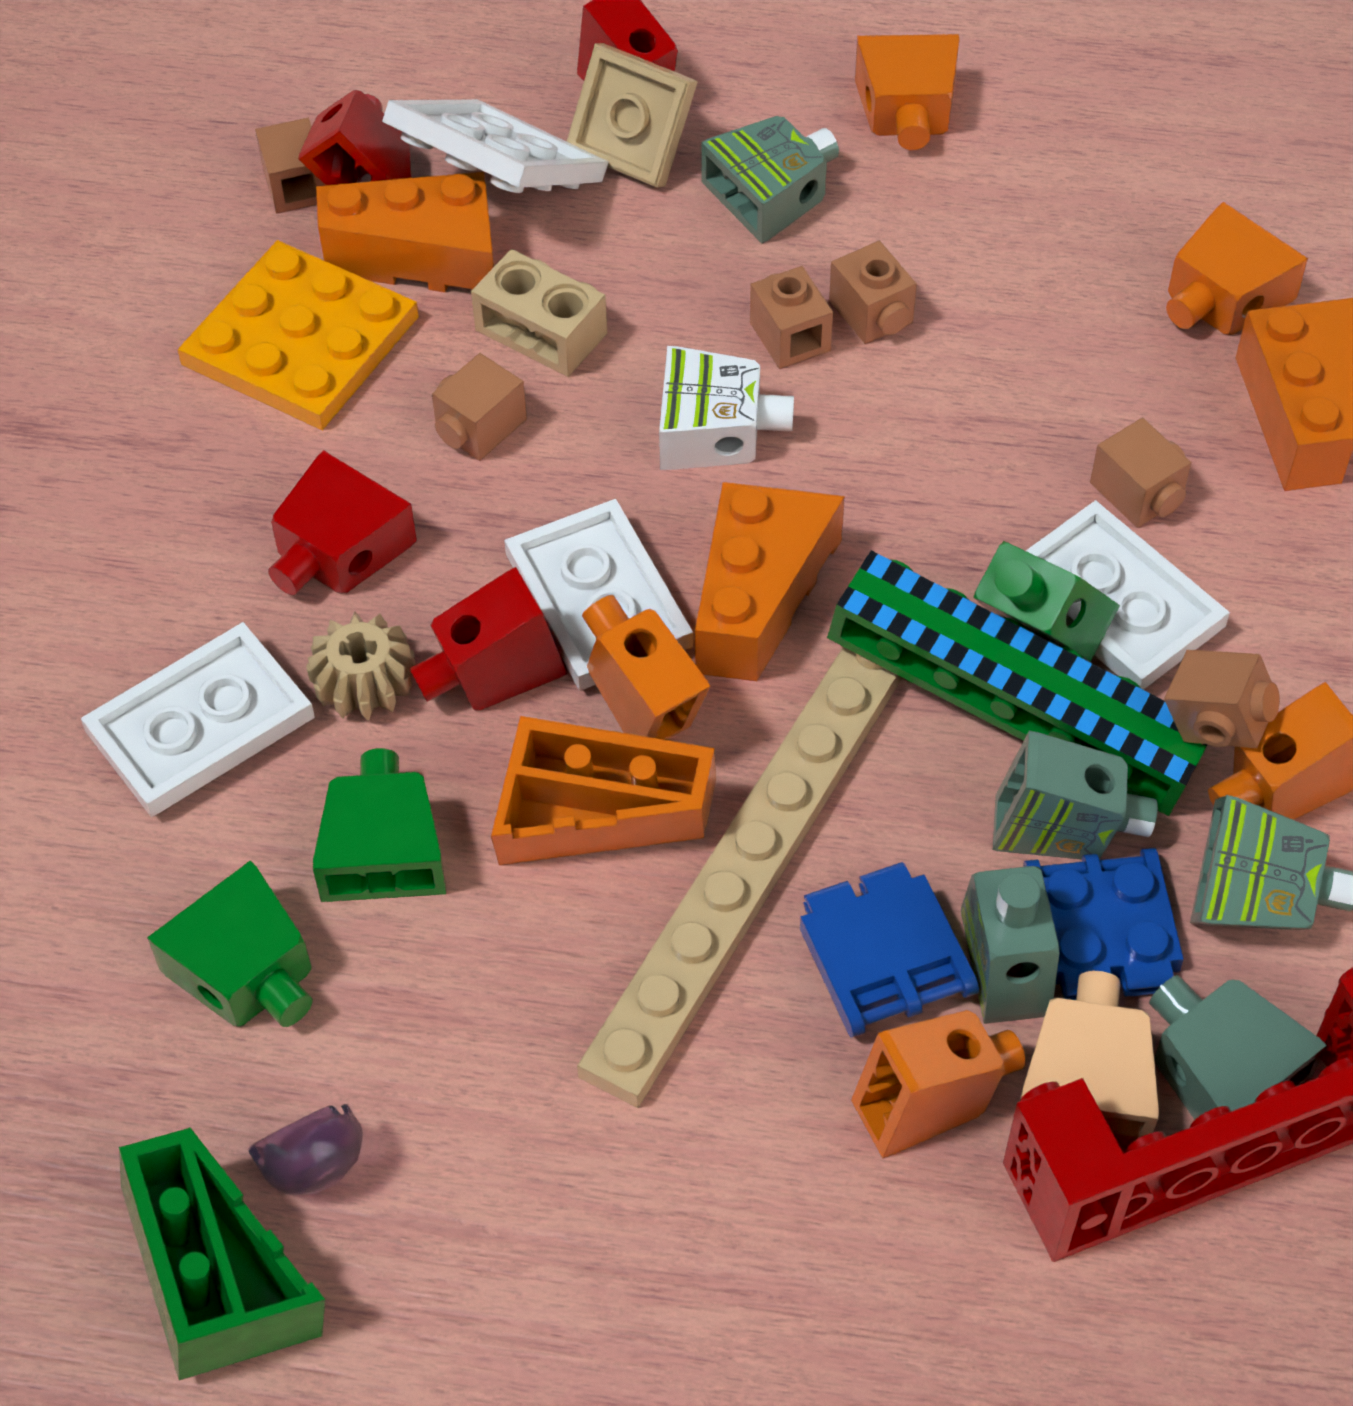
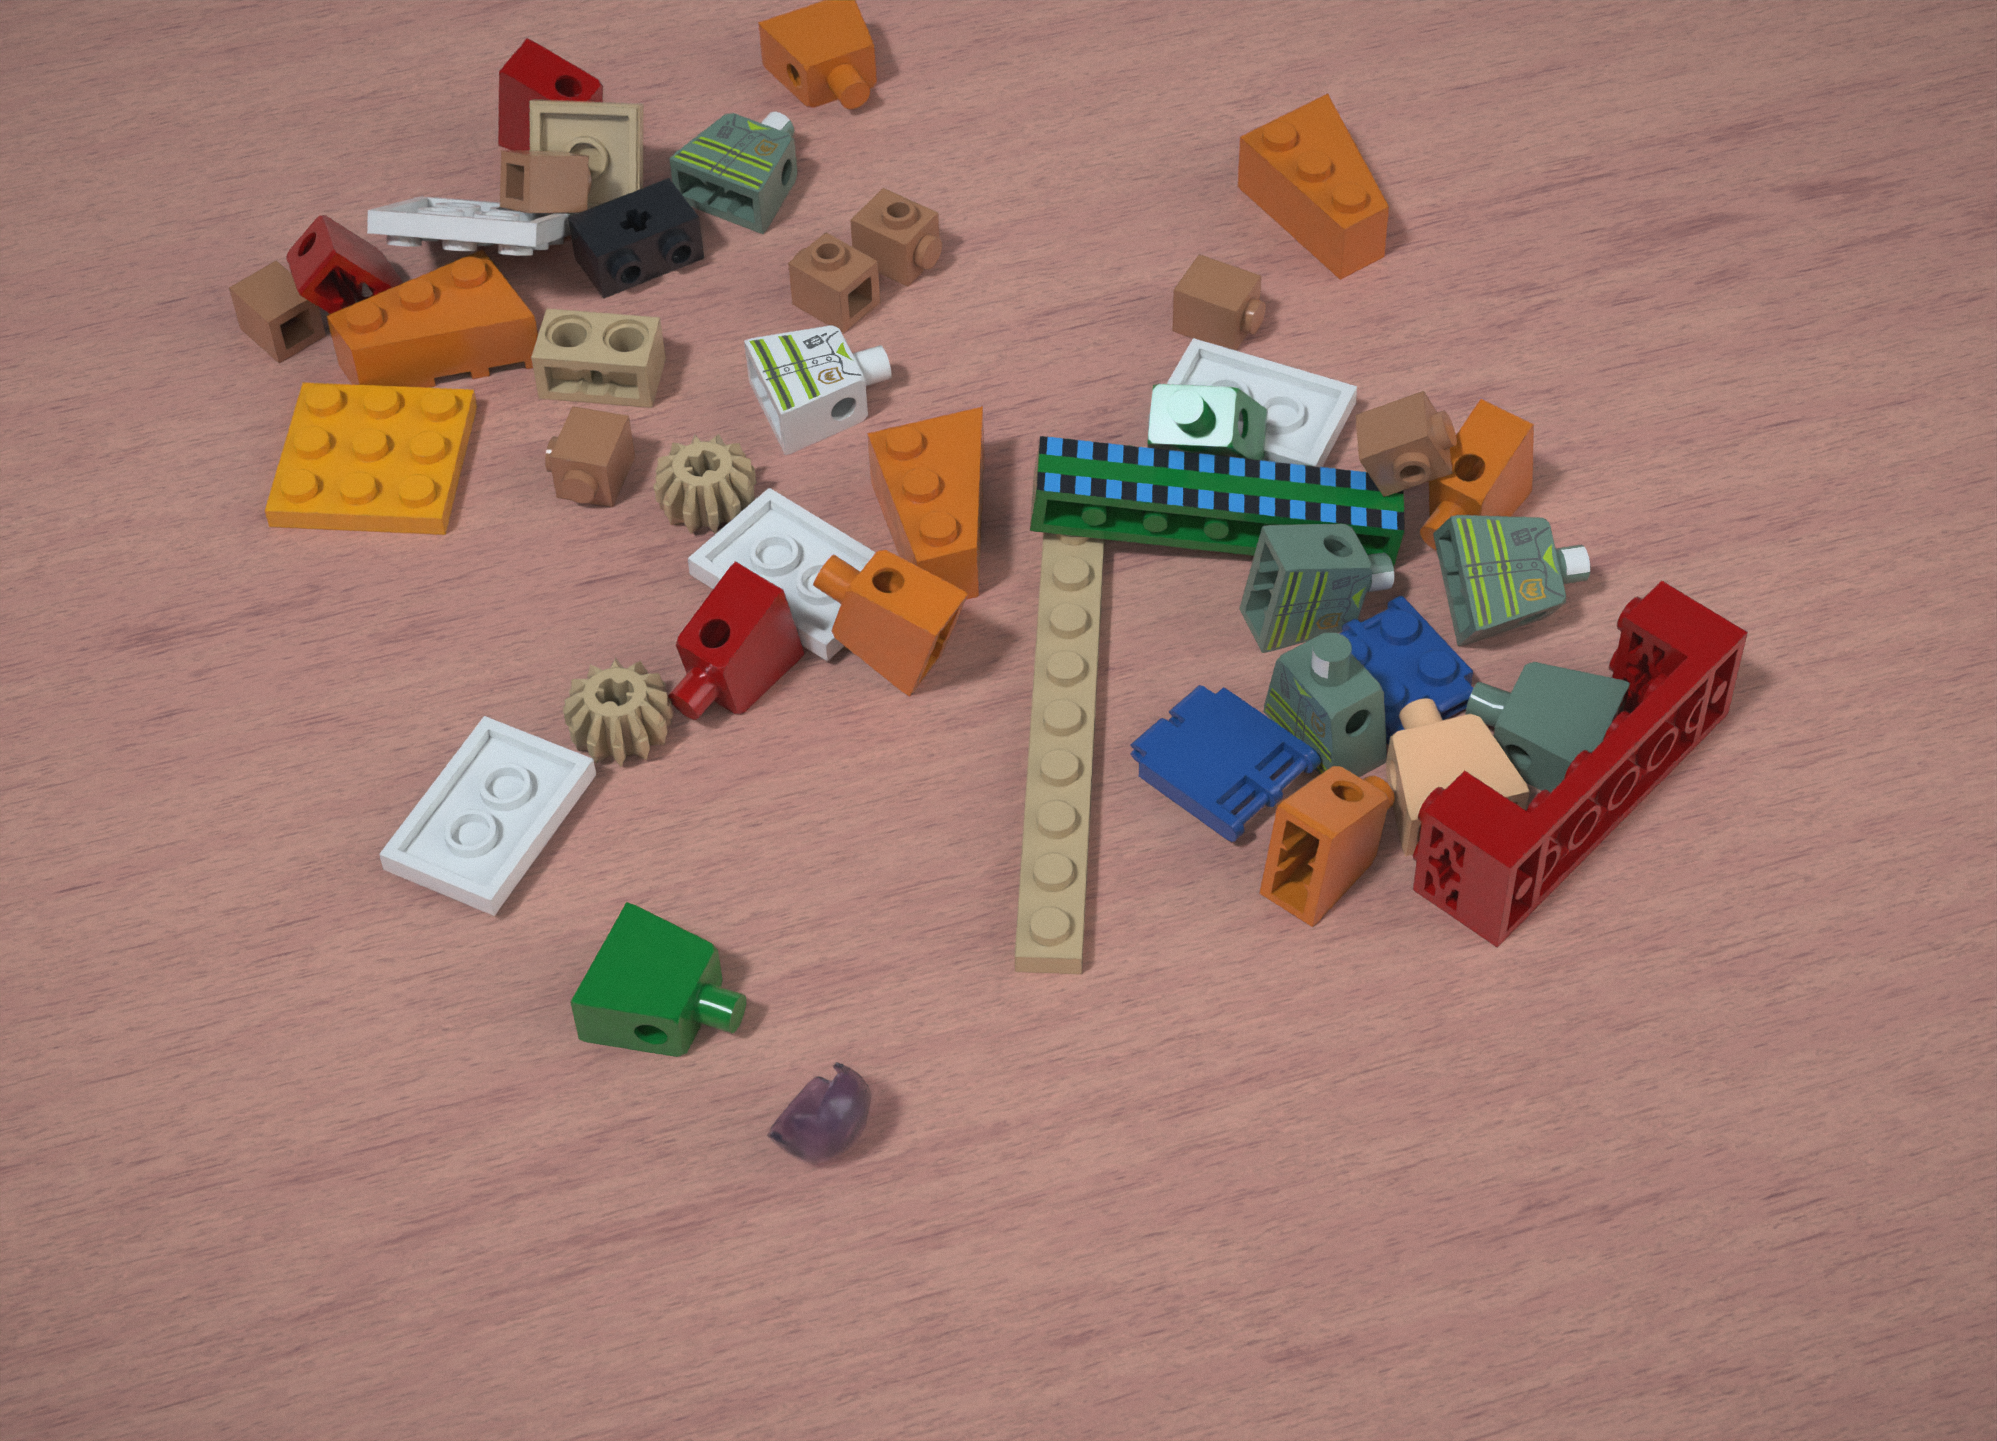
camera: 25 degrees left, 5 degrees down
(209, 1261) = (785, 1237): green wedge -> none
(338, 528) = (523, 605): red torso -> none
(377, 835) = (726, 842): green torso -> none
(562, 471) = (704, 483): none -> tan gear
(575, 125) = (544, 181): none -> nougat brick
(598, 792) = (906, 727): orange wedge -> none
(638, 207) = (636, 237): none -> black brick
(1231, 270) = (1201, 115): orange torso -> none

